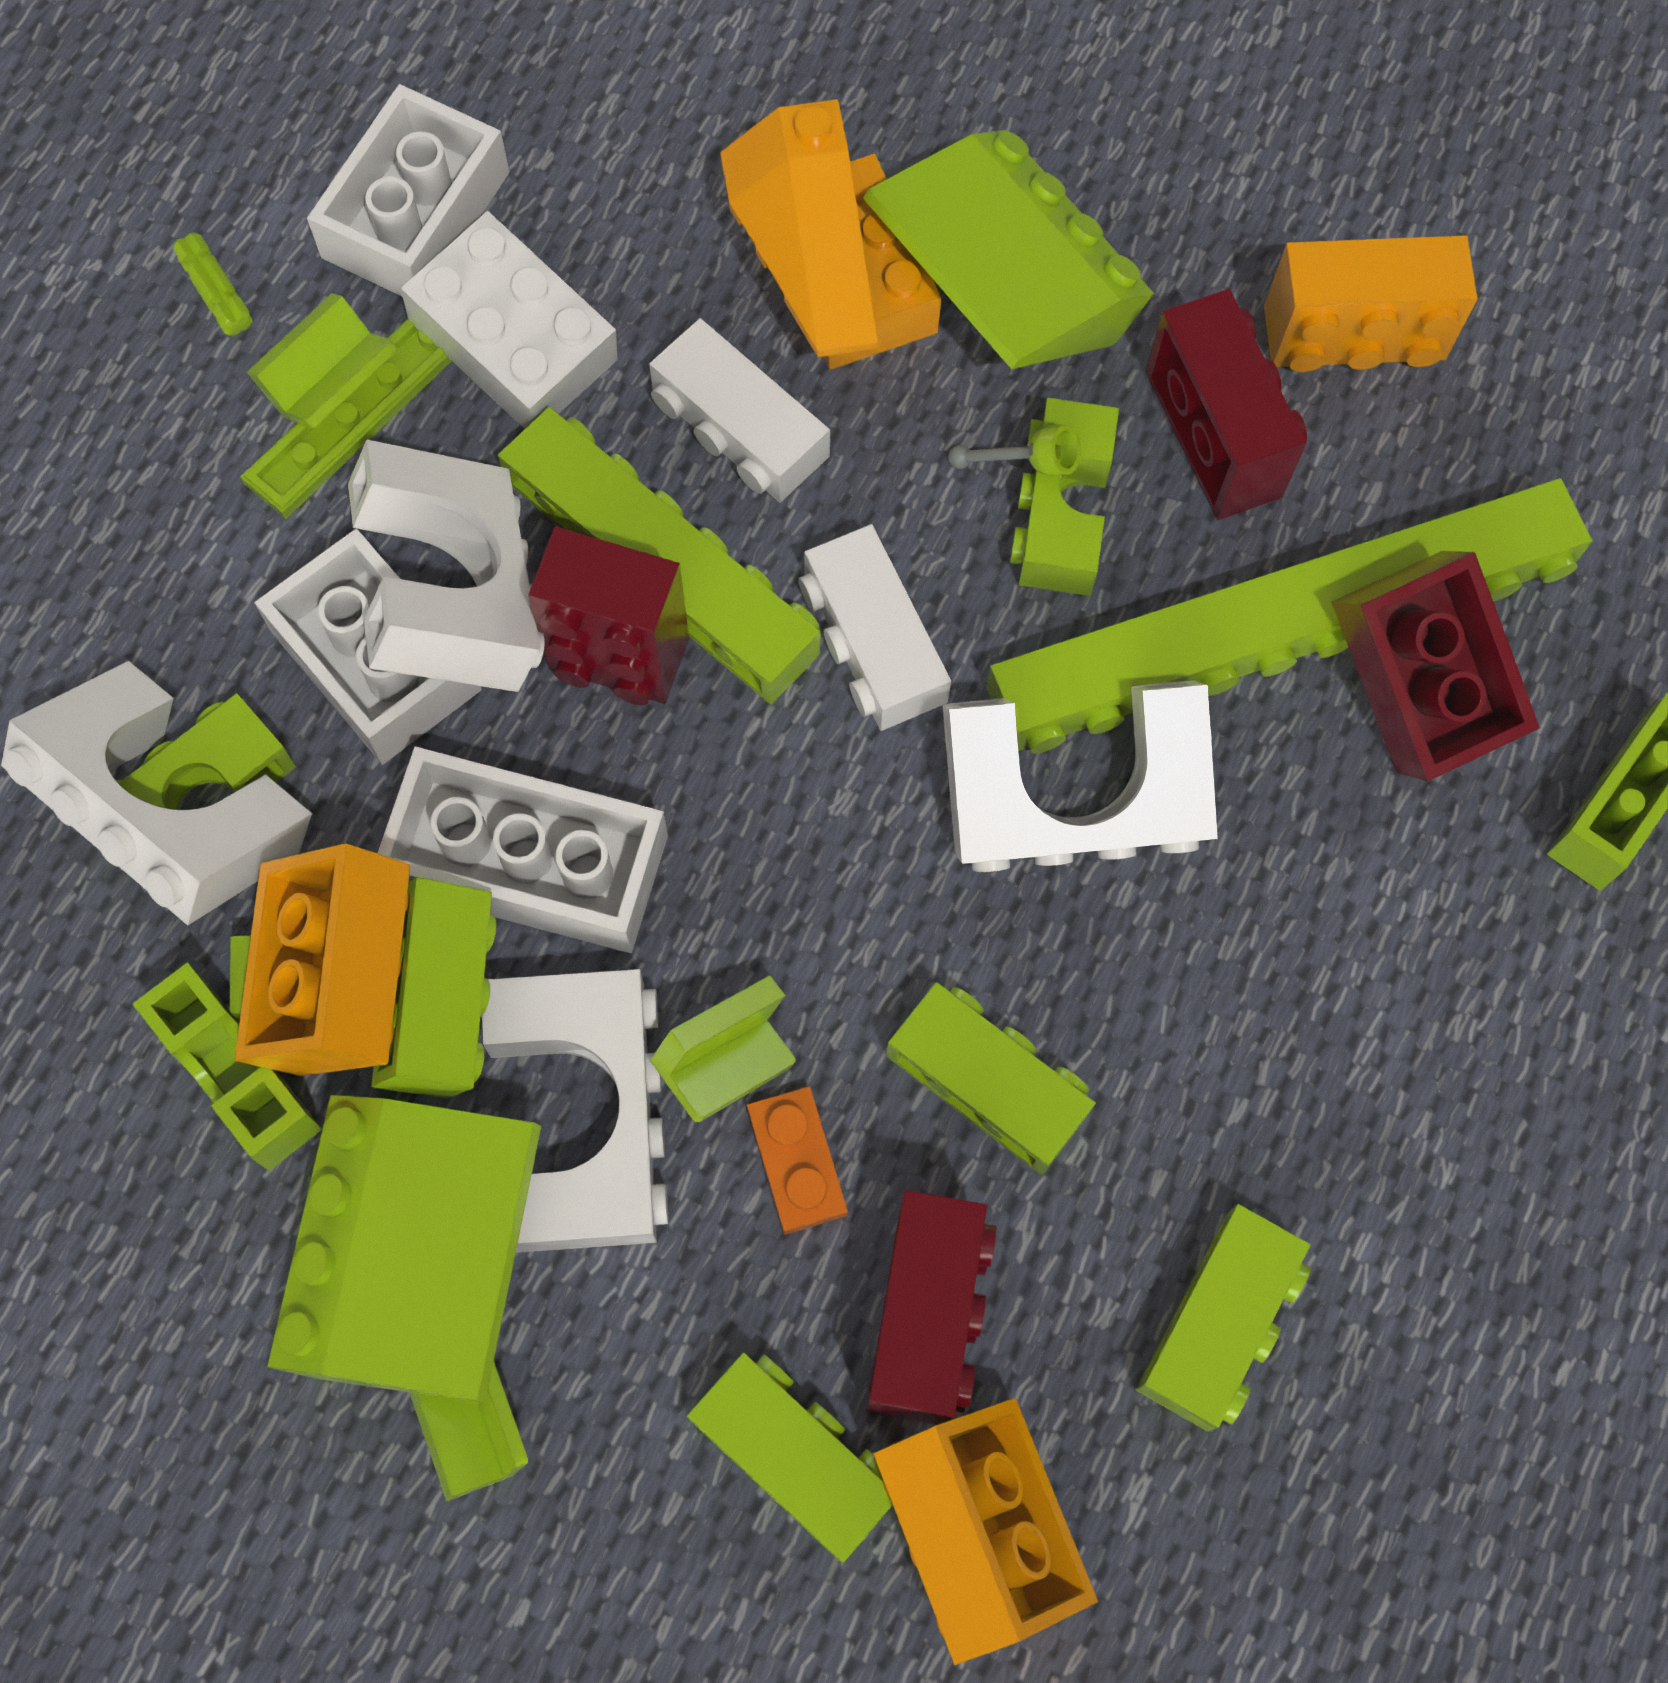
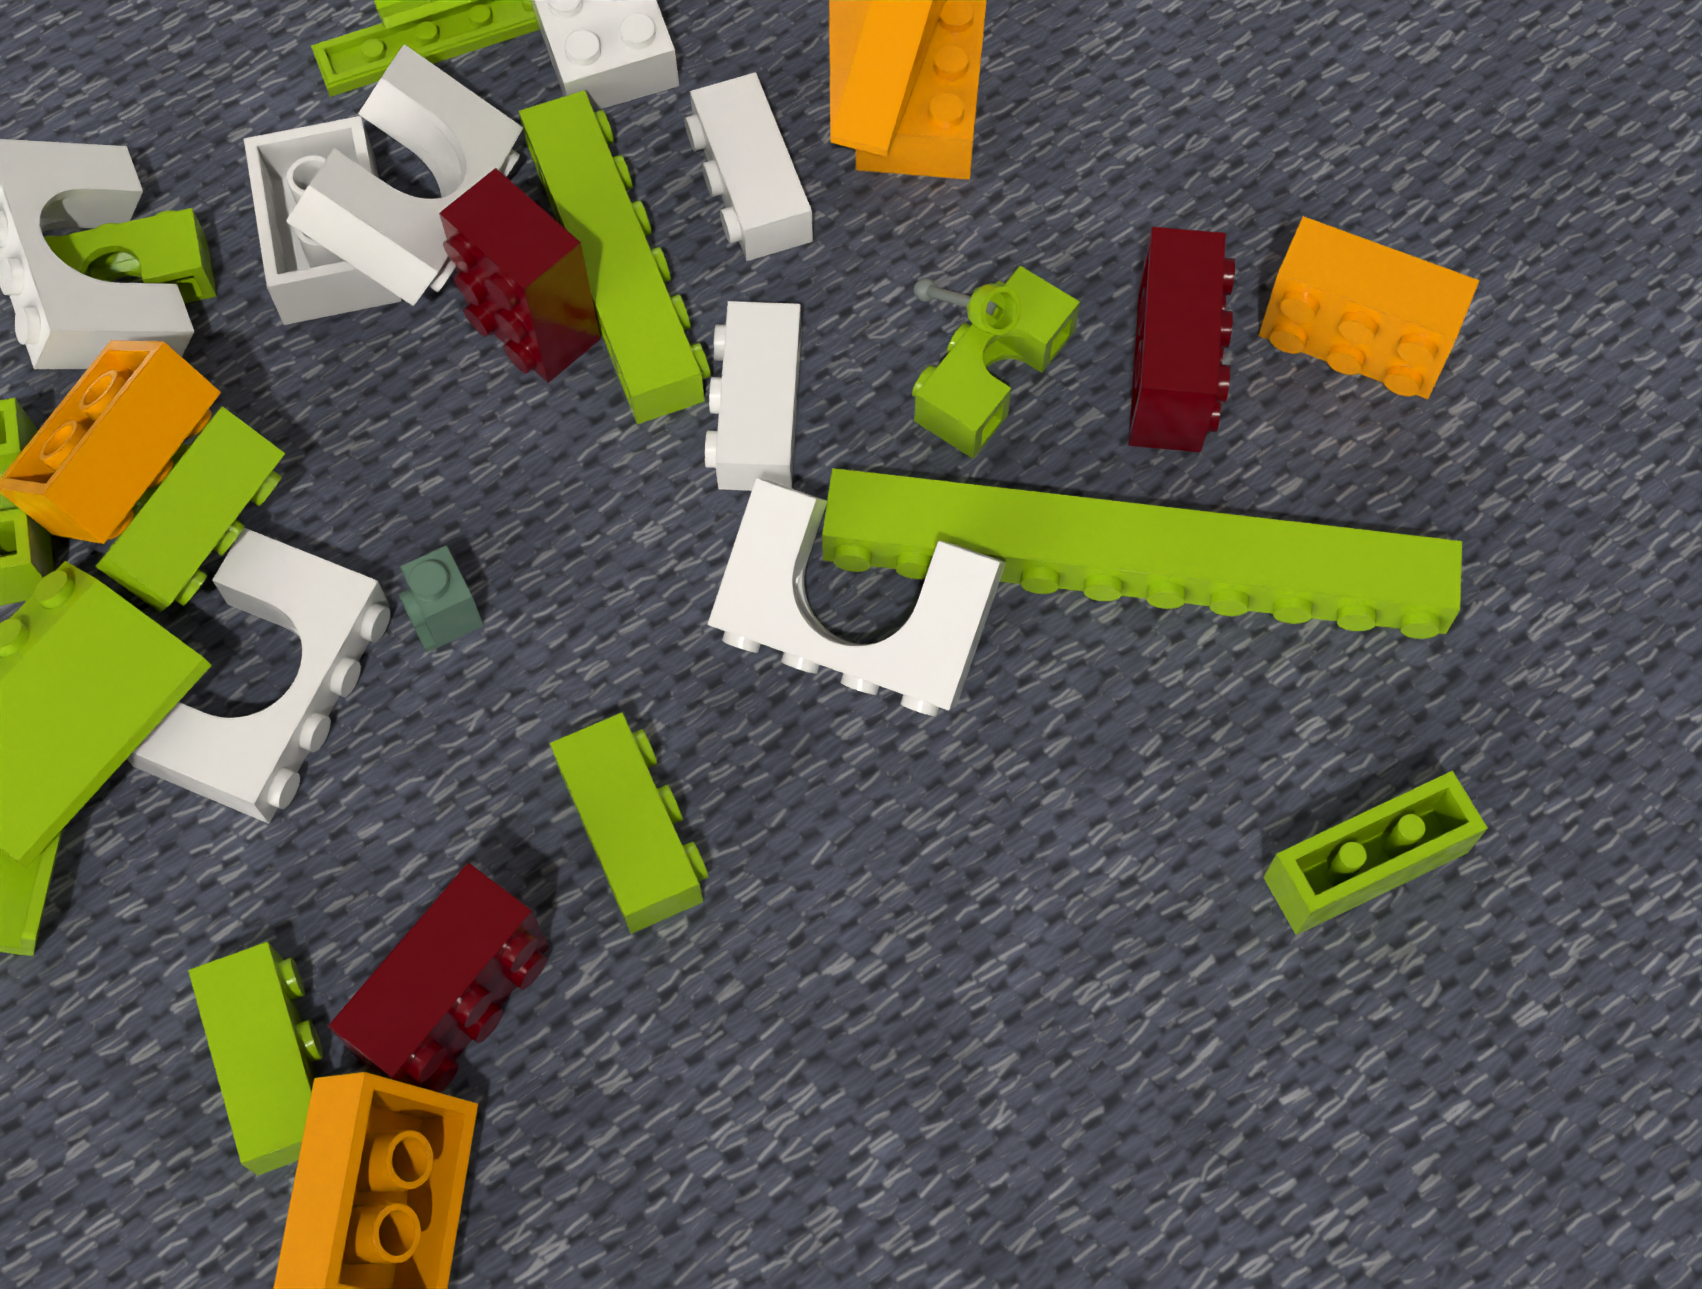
camera: 30 degrees right, 5 degrees down
(540, 847) = (350, 440): white brick -> none
(697, 958) = (438, 599): none -> sand green brick
(724, 1051) = (412, 684): lime panel -> none
(797, 1160) = (424, 813): orange plate -> none
(1012, 249) = (1058, 128): lime slope -> none
(1226, 1320) = (710, 1136): lime brick -> none
(1436, 664) = (1237, 649): dark red brick -> none

